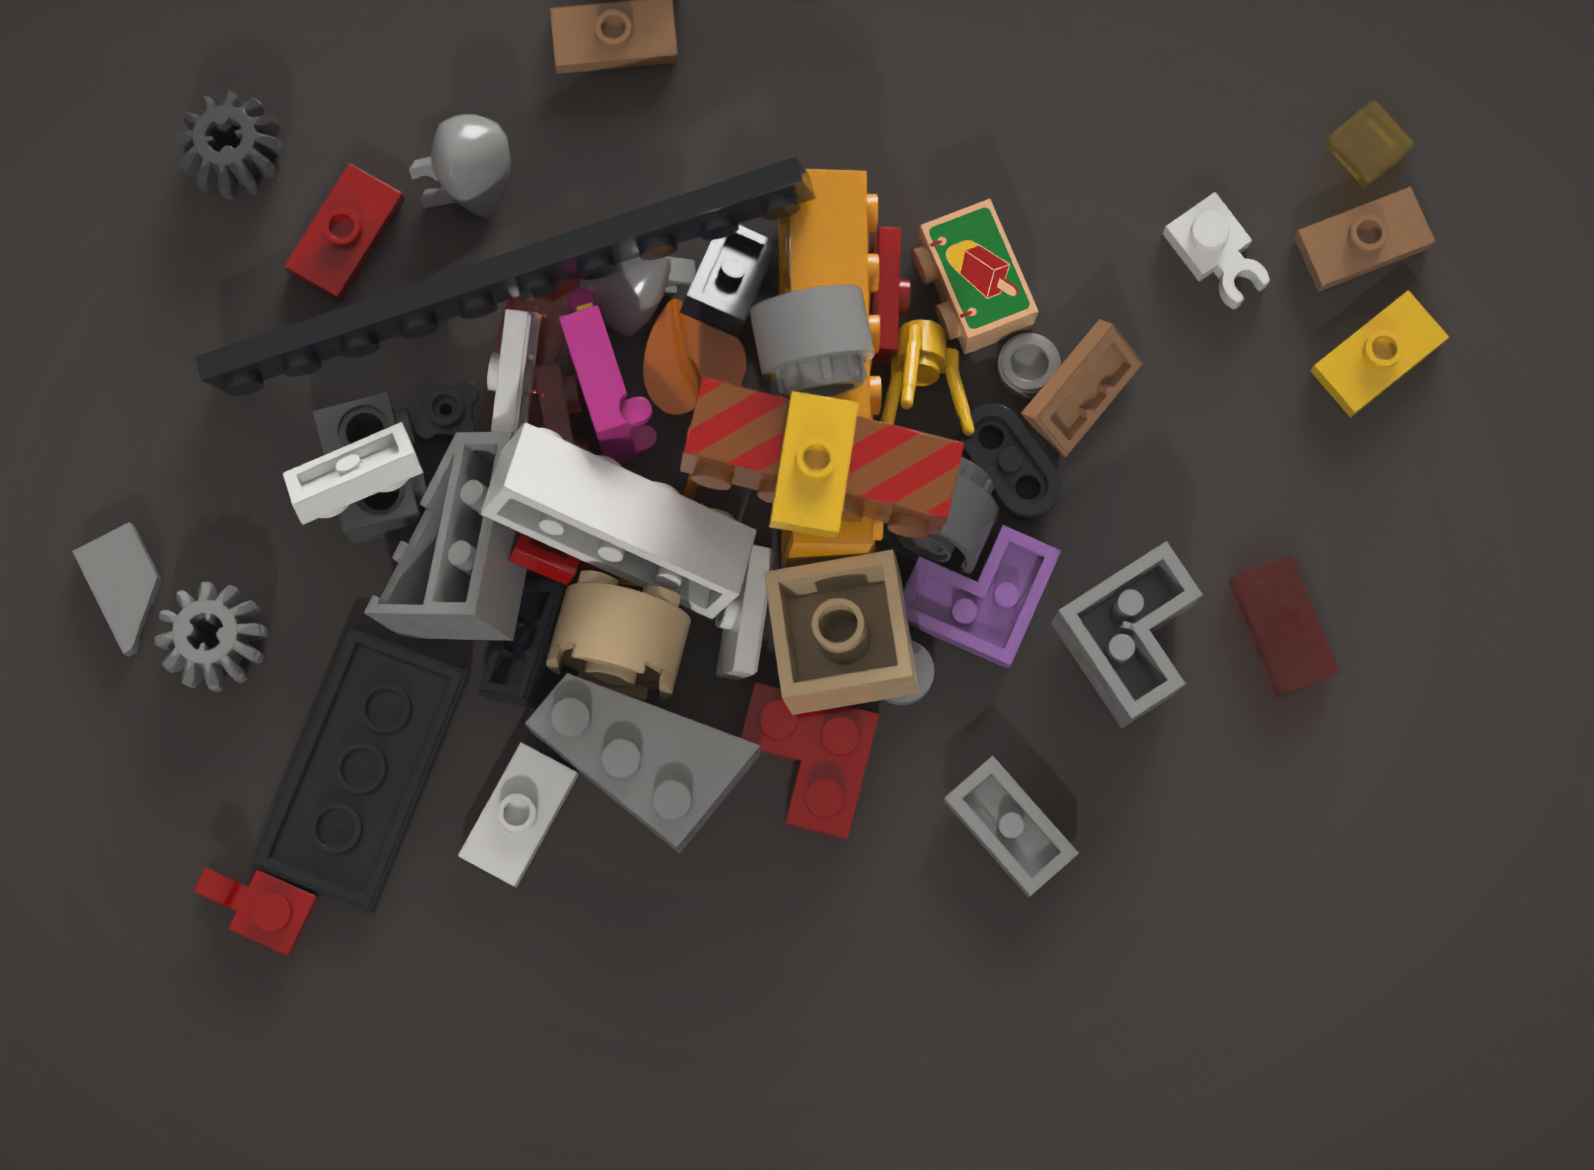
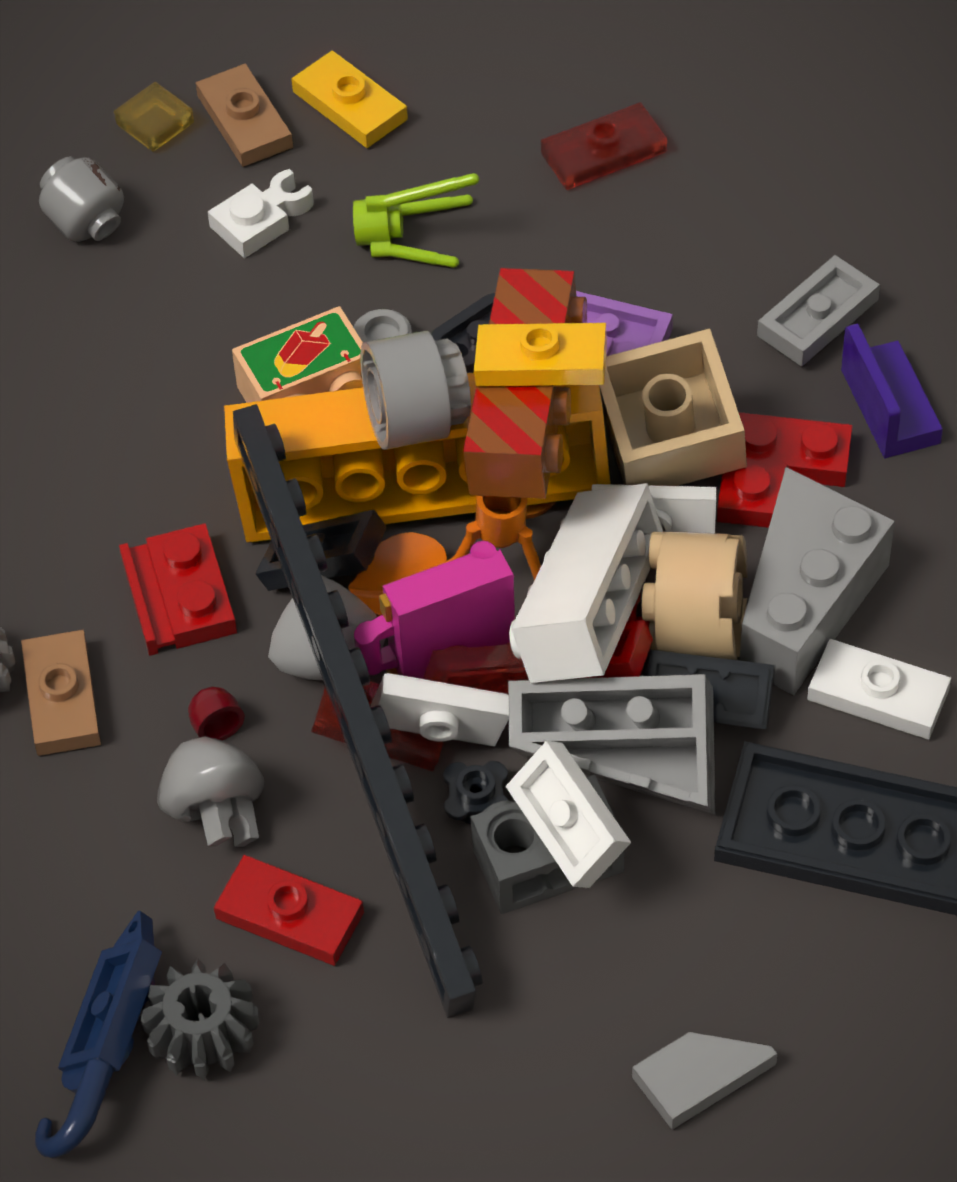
camera: 90 degrees left, 25 degrees down
(188, 638) = (746, 967): light grey gear -> none
(232, 62) = (103, 1032): none -> dark blue plate
(566, 172) = (215, 713): none -> dark red hinge
(721, 140) = (178, 589): none -> red plate
(888, 886) = (889, 395): none -> dark purple panel
(1082, 388) = (402, 288): medium nougat plate -> none
(1113, 631) = (631, 237): light grey brick -> none
(1183, 373) = (381, 218): none -> lime plant
(1238, 60) = (81, 199): none -> light grey head

